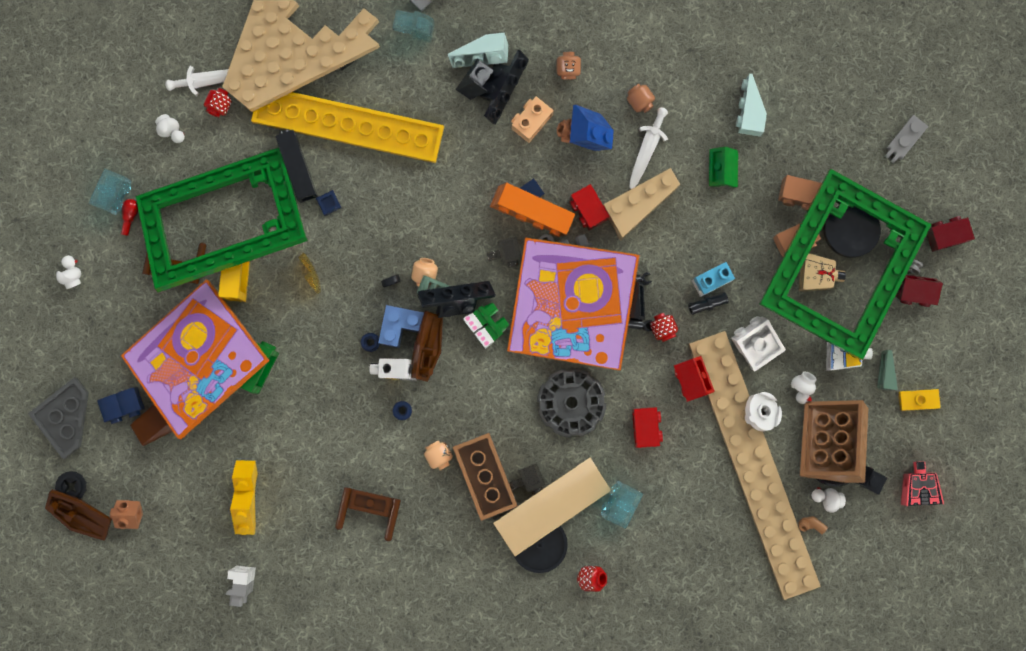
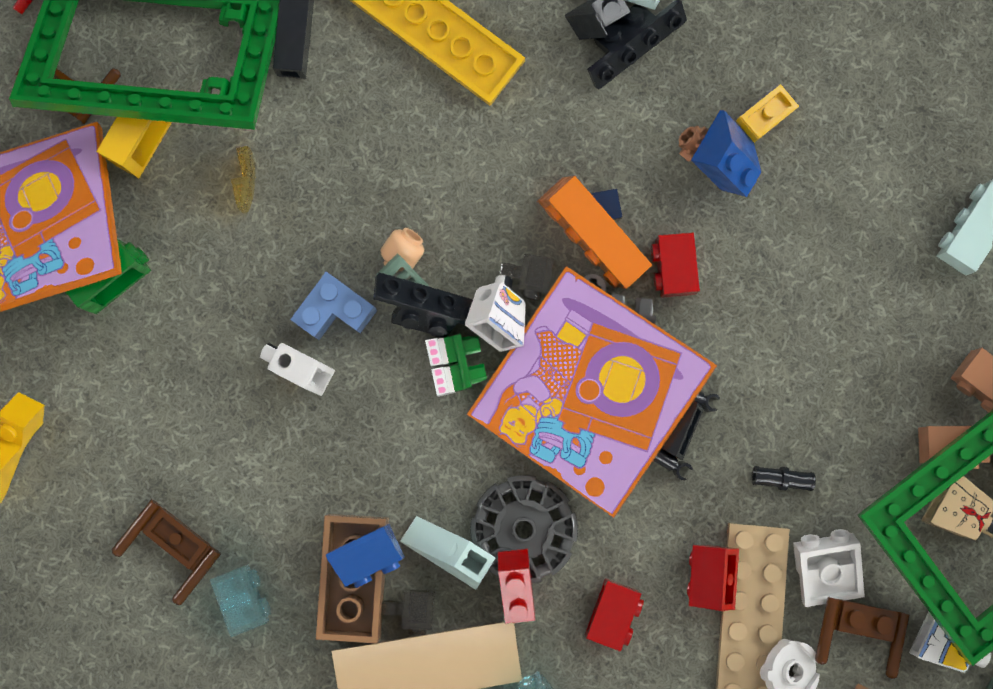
camera: 30 degrees right, 0 degrees up
(328, 203) = (316, 93): dark blue tile -> none
(365, 338) = (274, 309): dark blue plate -> none
(390, 281) = (352, 241): black tile -> none
(397, 406) = (273, 426): dark blue plate -> none
(425, 520) = (241, 600): none -> clear light blue brick
(427, 346) = (356, 356): reddish brown piece -> none
(438, 455) = (302, 516): light nougat head -> none
(488, 457) = (365, 556): none -> blue slope
(499, 284) = (498, 315): none -> white torso
(531, 119) = (653, 104): light nougat brick -> none
(534, 435) = (448, 551): none -> light aqua slope
(568, 66) = (739, 53): nougat head -> none
(582, 436) = (516, 586): none -> brick
(601, 93) = (767, 113): none -> yellow plate
(636, 204) = (749, 290): tan wedge -> none
(640, 98) = (820, 145): nougat head -> none
(648, 146) = (799, 217): white sword -> none
(664, 327) = (704, 484): red head -> none
(713, 279) = (806, 448): medium azure hips -> none
(723, 167) = (893, 295): green panel -> none
(793, 363) = (866, 622): none -> reddish brown plate
(805, 385) = (869, 662): white animal -> none

